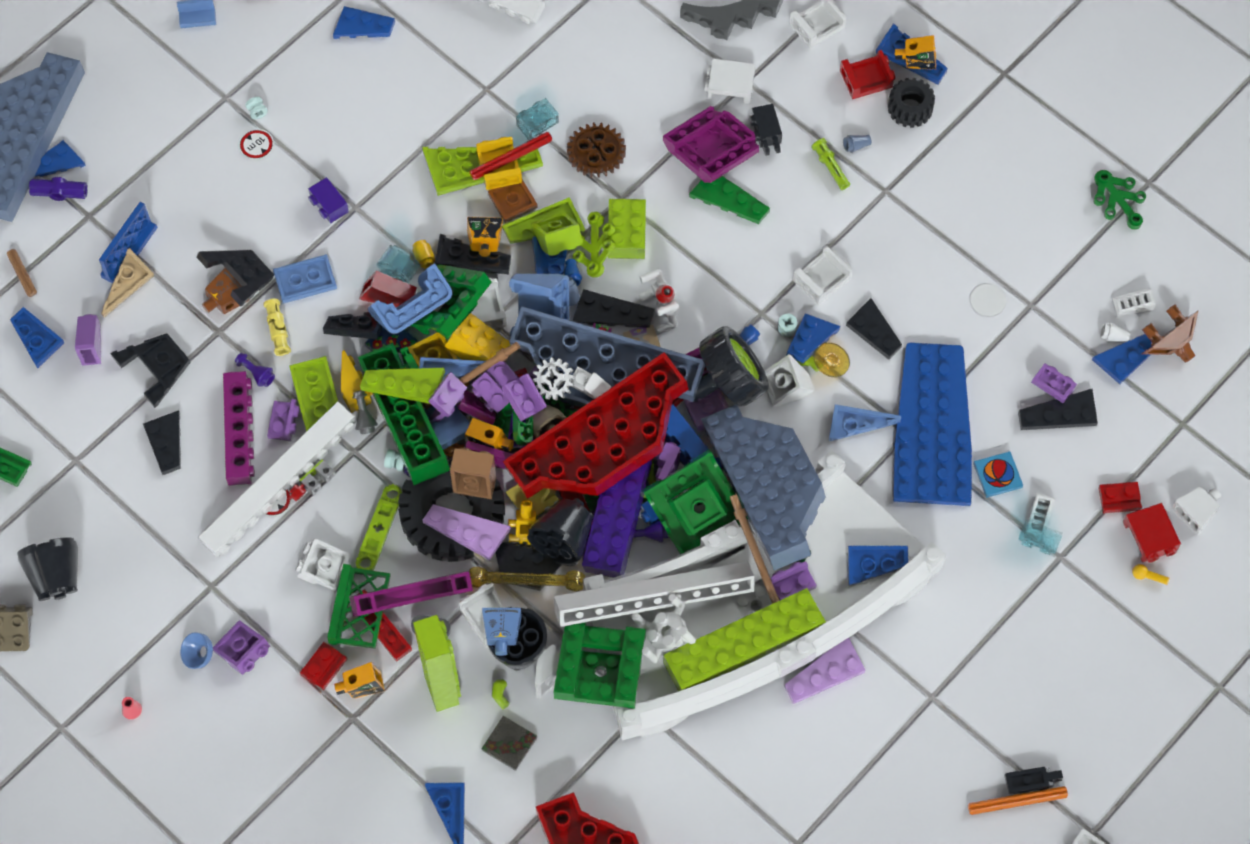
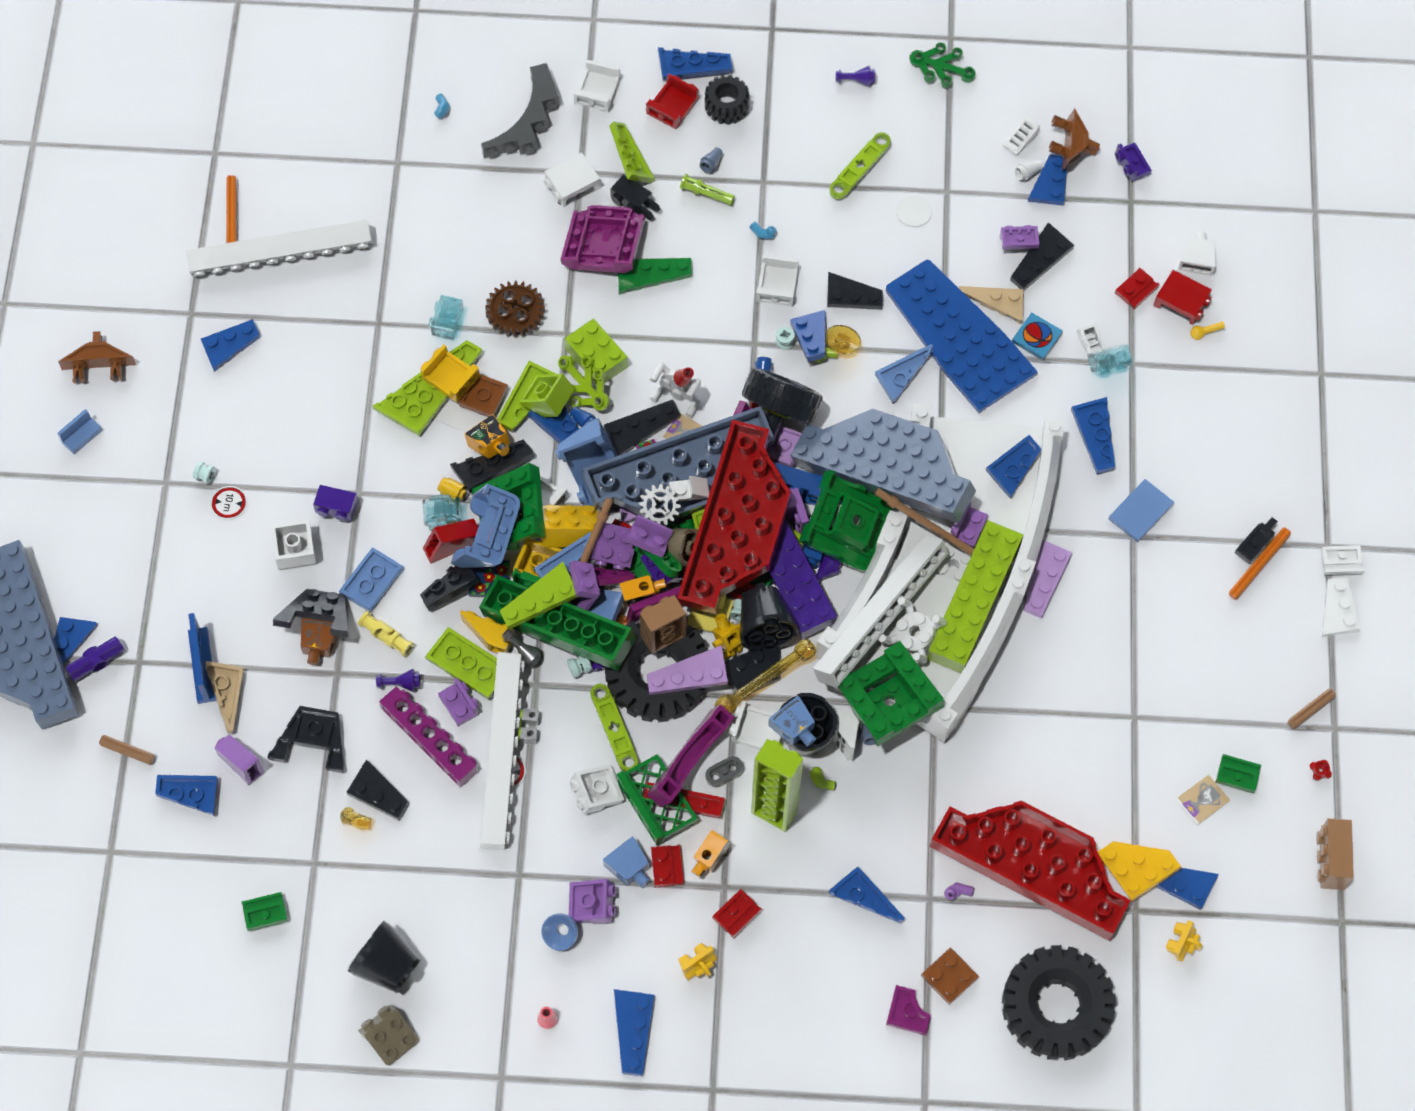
camera: 40 degrees left, 0 degrees up
(131, 451) = (355, 819): none -> clear yellow arm
(189, 766) = (633, 1026): none -> blue wing
(269, 208) = (293, 544): none -> white brick
(277, 759) = (698, 964): none -> yellow hips
(295, 640) = (628, 863): none -> medium blue torso
(297, 492) = (523, 749): red plate -> none
(340, 744) = (736, 913): none -> red plate
(509, 743) = (862, 811): clear smoke tile -> none
(511, 155) = (455, 360): red axle -> none
(788, 381) = (826, 378): white slope -> none
(793, 94) = (630, 155): none -> lime wing
(846, 230) = (768, 233): none -> dark azure arm
(918, 52) = (702, 55): light orange torso -> none
(956, 680) = (1141, 510): none -> medium blue tile
(963, 233) = (852, 174): none -> lime piece
(976, 586) = (1095, 430): none -> blue wing
(996, 425) = (1002, 300): none -> tan wing
(1044, 162) = (864, 76): none -> dark purple piece
(1212, 390) = (1132, 161): none -> dark purple bracket

